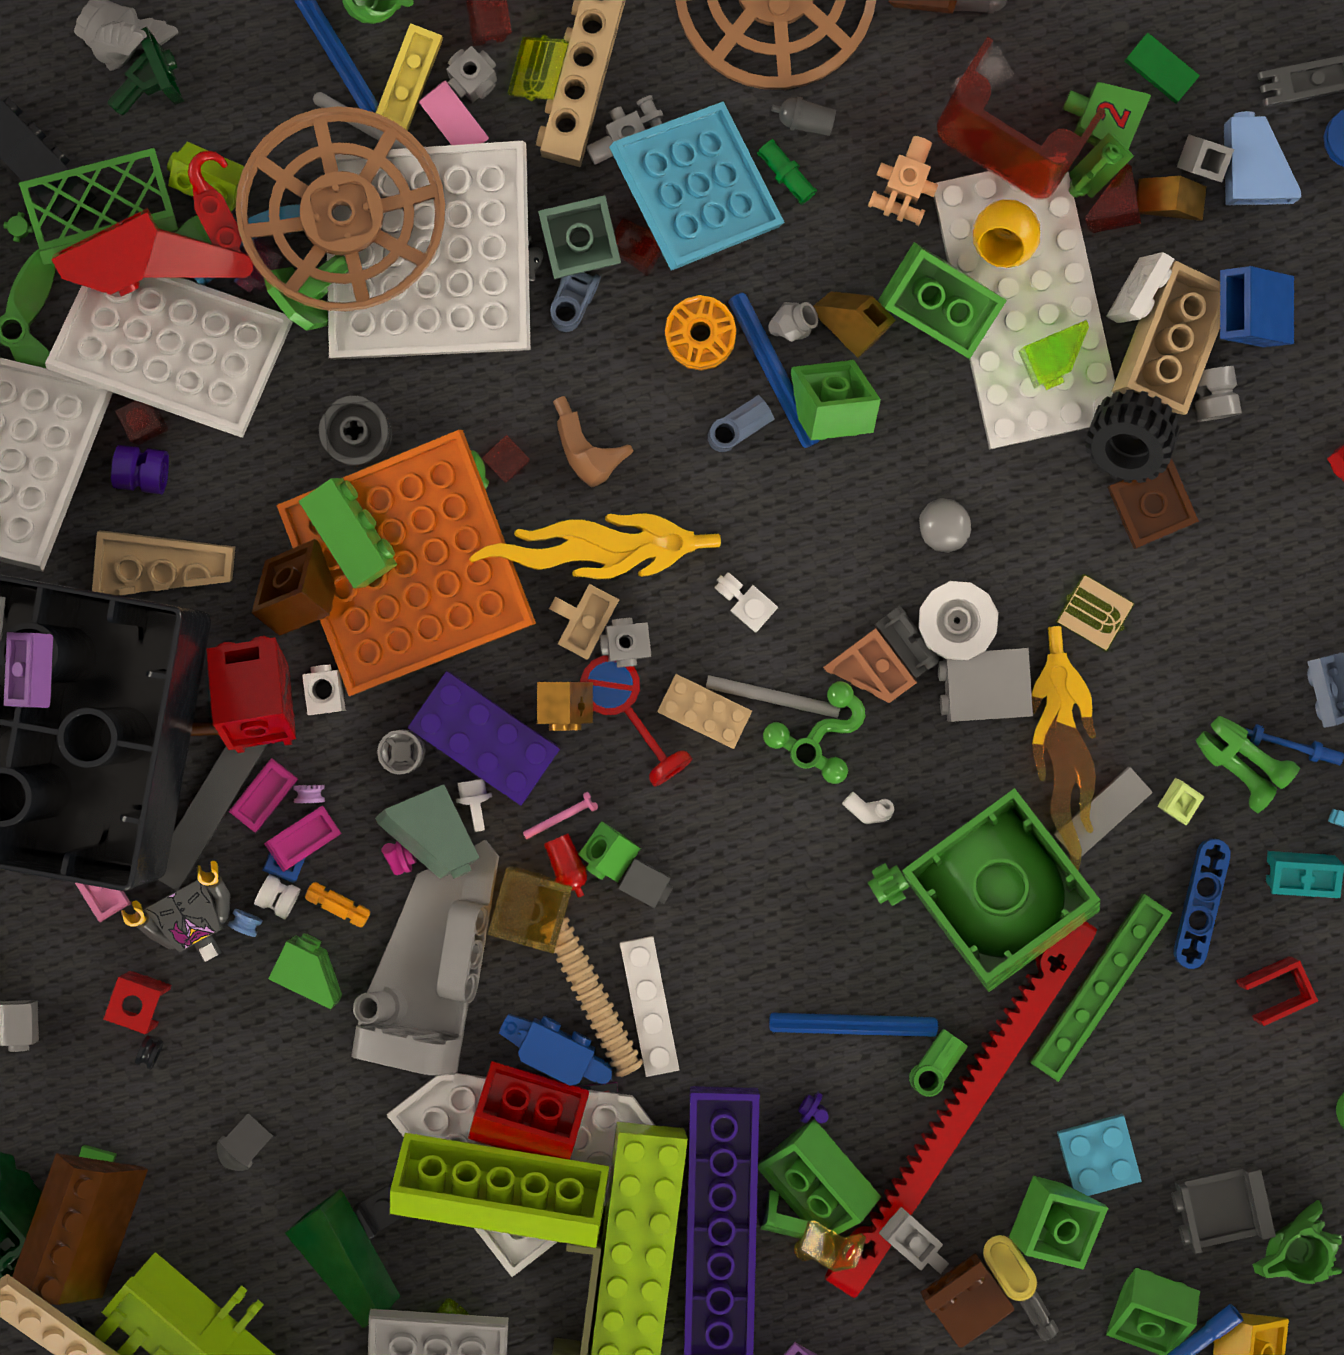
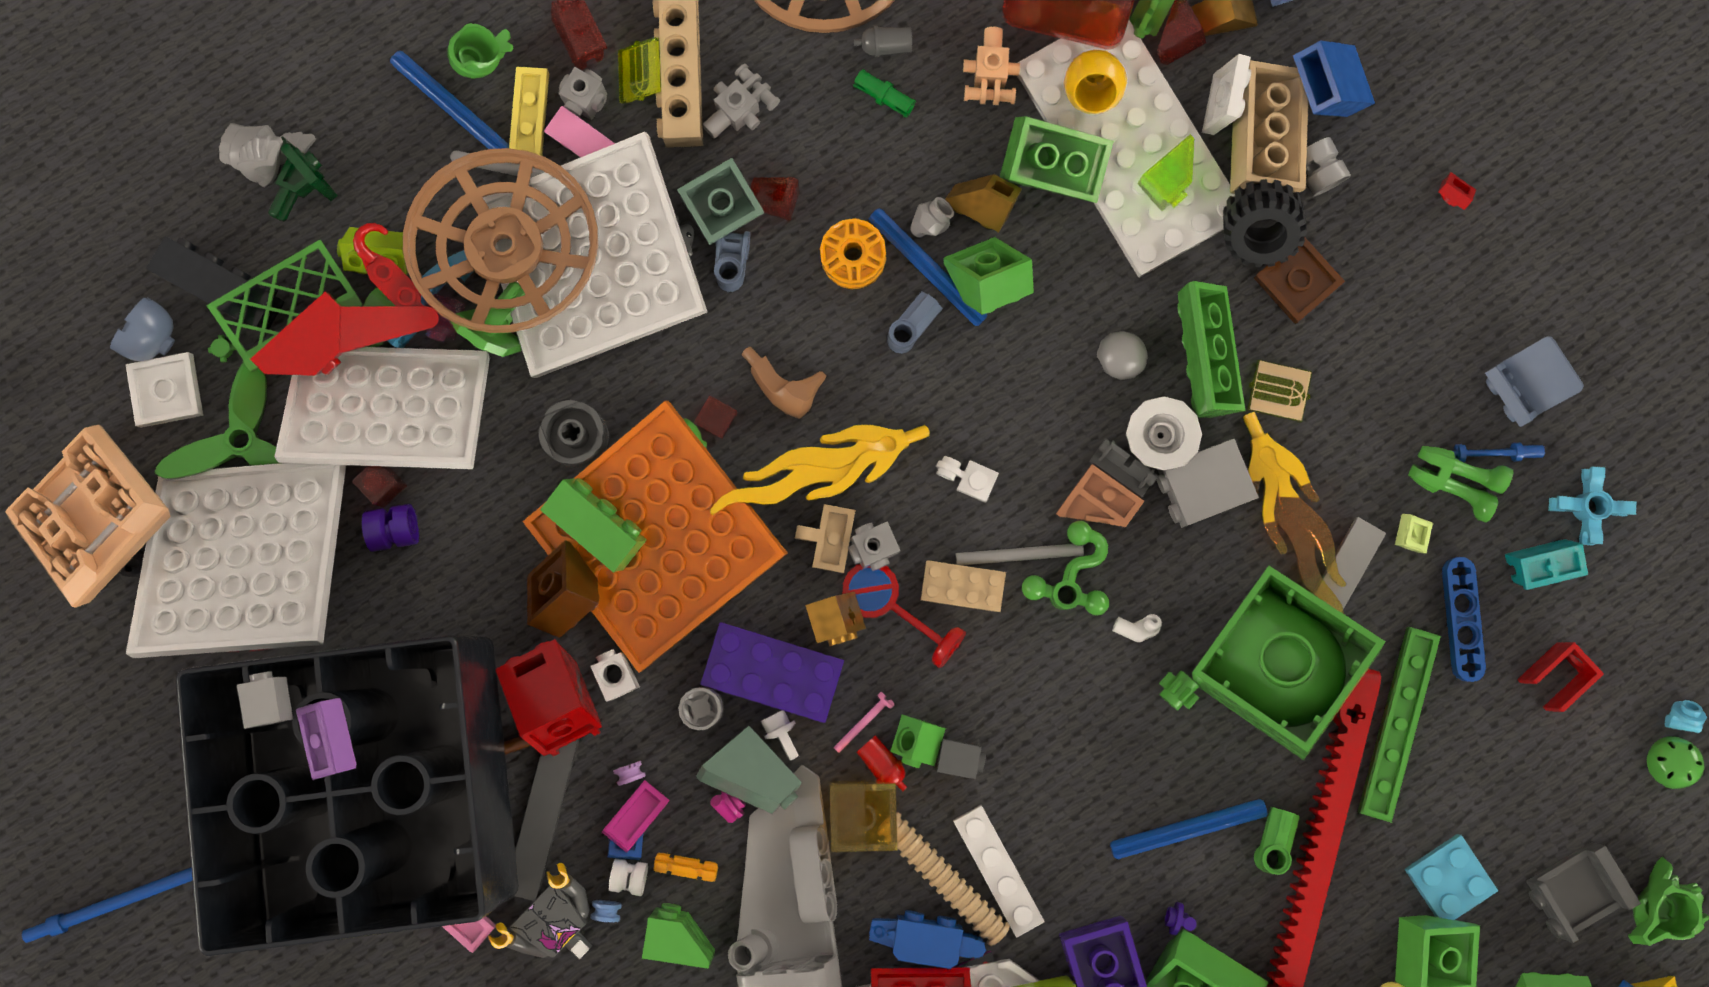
camera: 15 degrees left, 5 degrees down
(147, 563) = (431, 607): tan wing -> none
(263, 795) = (588, 787): dark pink tile -> none
(696, 185) = (809, 125): medium azure plate -> none
(1035, 549) = (1210, 350): none -> bright green slope

